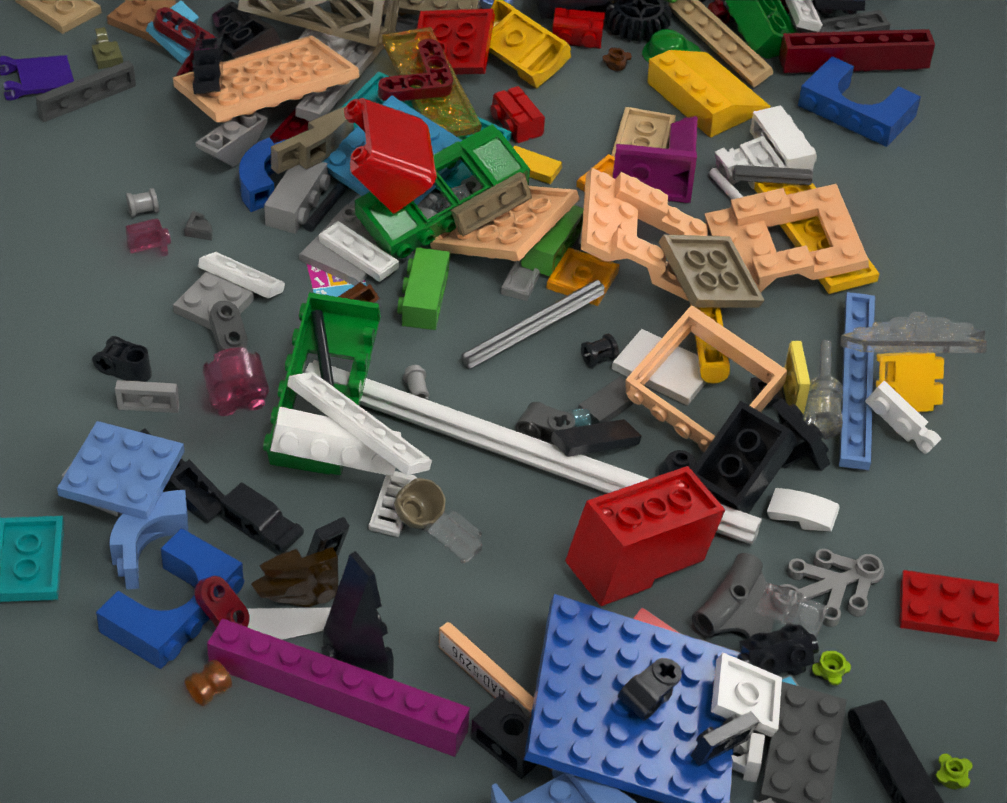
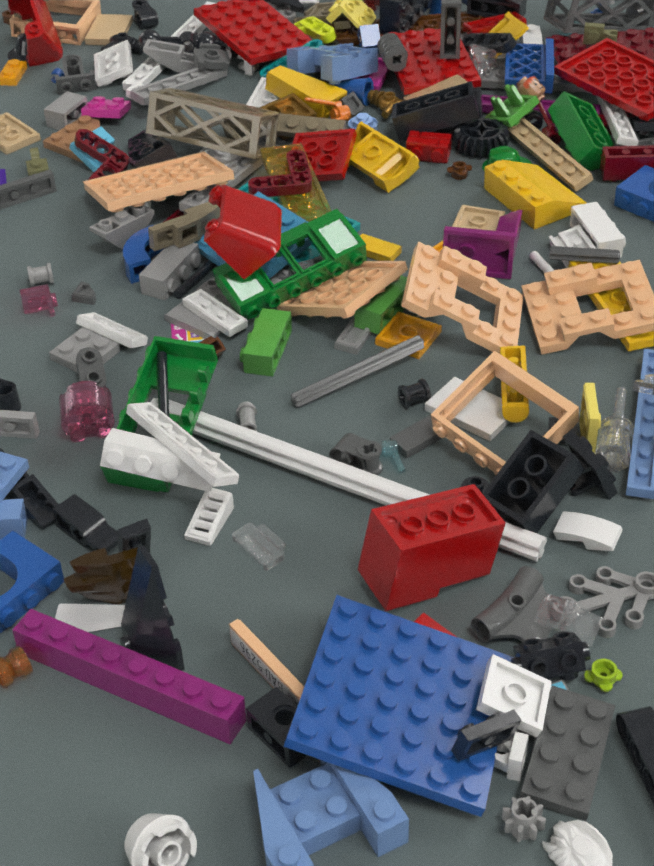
camera: 10 degrees right, 5 degrees down
(208, 65) = (111, 170): black slope -> none
(223, 605) = (35, 598): dark red plate -> none
(420, 503) = (229, 515): dark tan hair -> none
(491, 204) = (330, 273): dark tan tile -> none
(517, 114) = (368, 210): red brick -> none
(595, 437) = (400, 464): black tile -> none
(651, 687) = (416, 683): black piece -> none
(711, 271) = (519, 327): dark tan plate -> none
(726, 161) = (543, 246): white tile -> none

